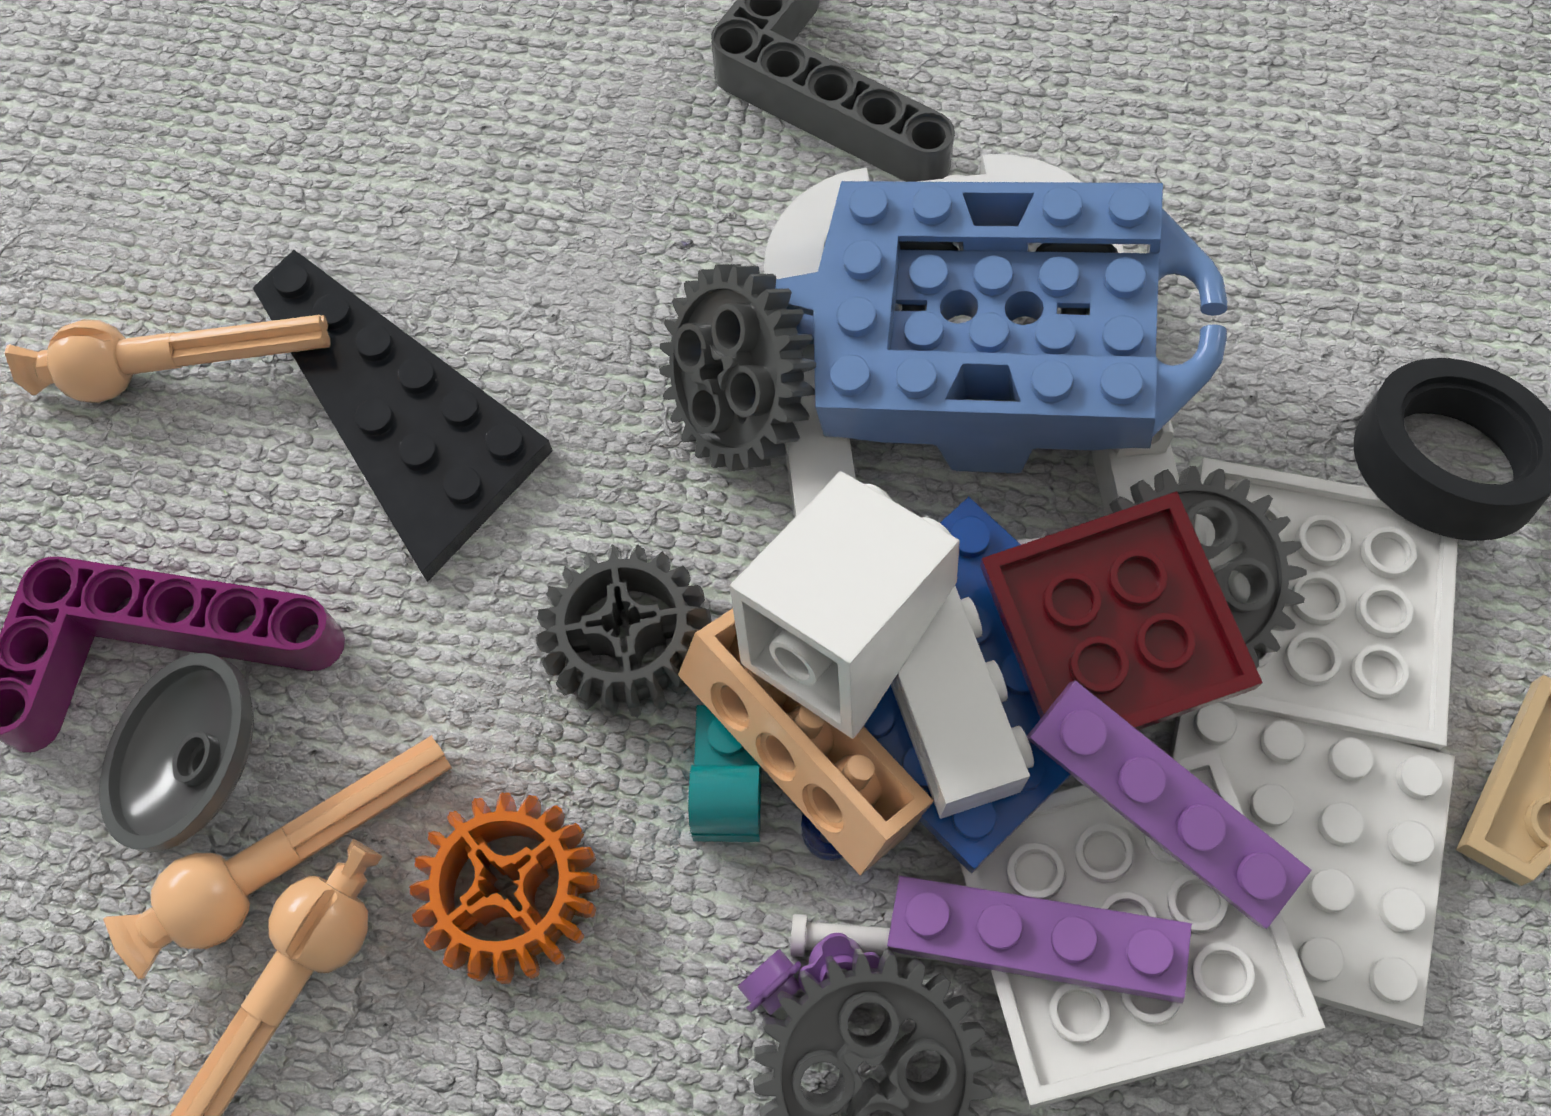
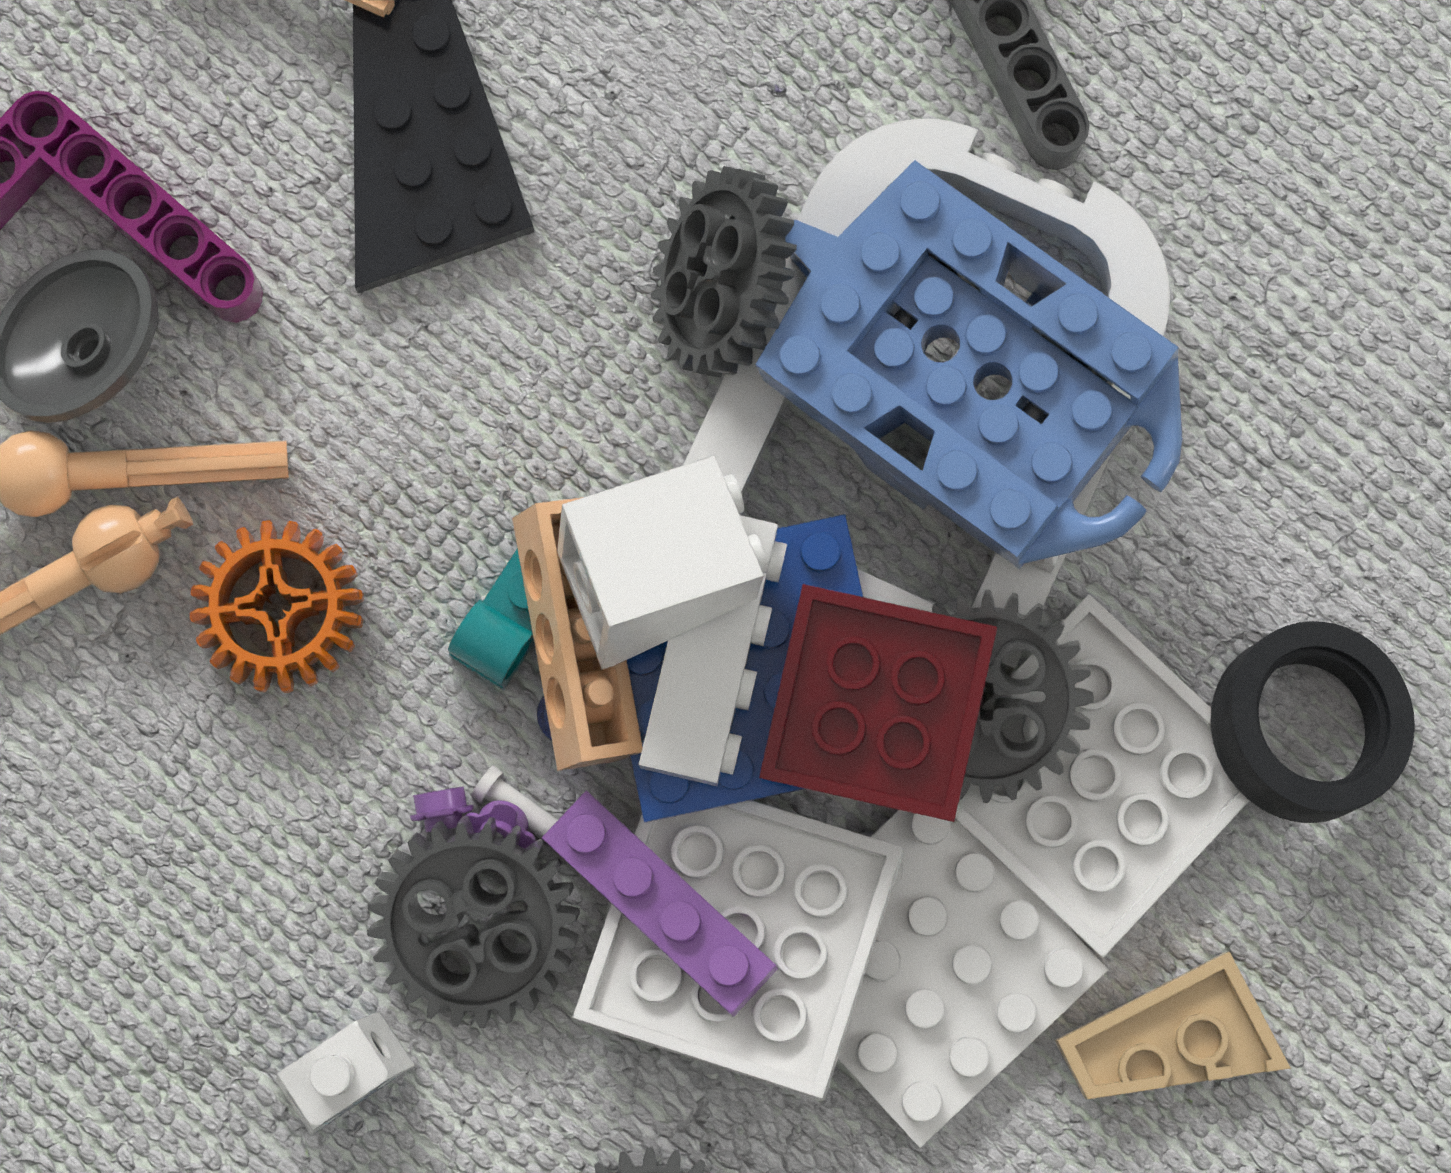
camera: 25 degrees right, 15 degrees up
(600, 630) = (467, 433): dark grey gear -> none
(1169, 804) = (814, 866): medium lavender plate -> none

